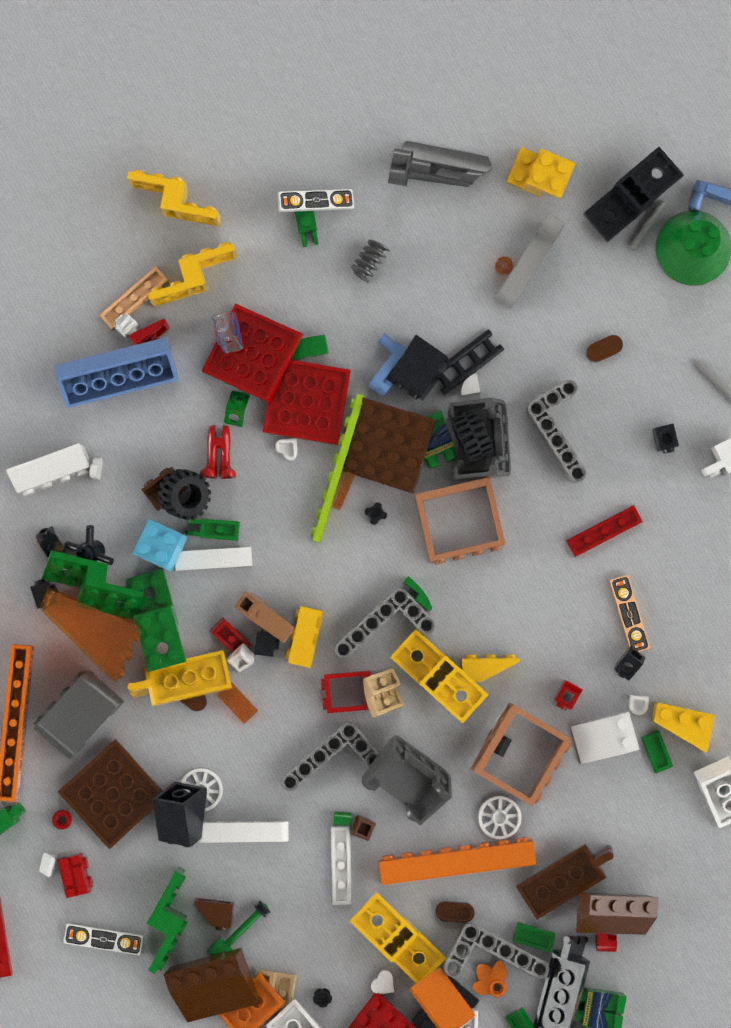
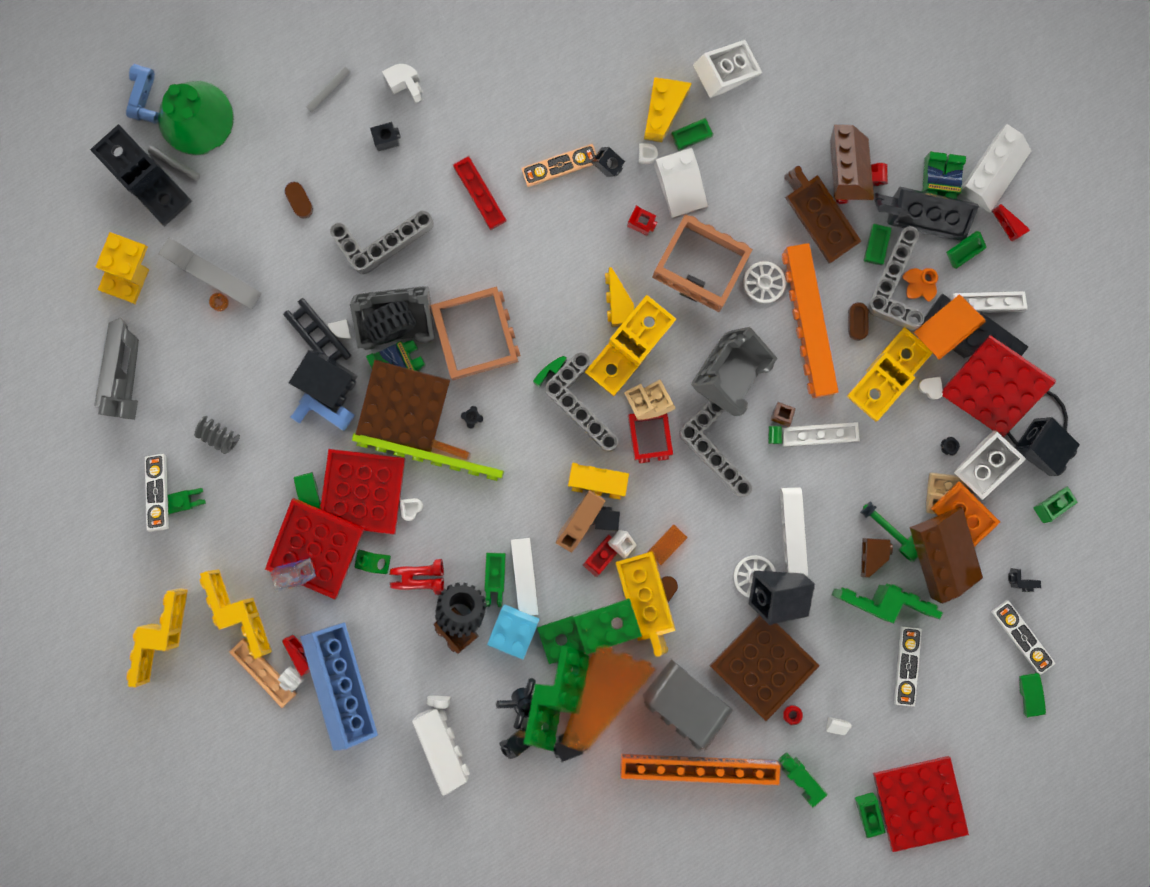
camera: 90 degrees left, 0 degrees up
(75, 875) = (847, 698): red brick -> none

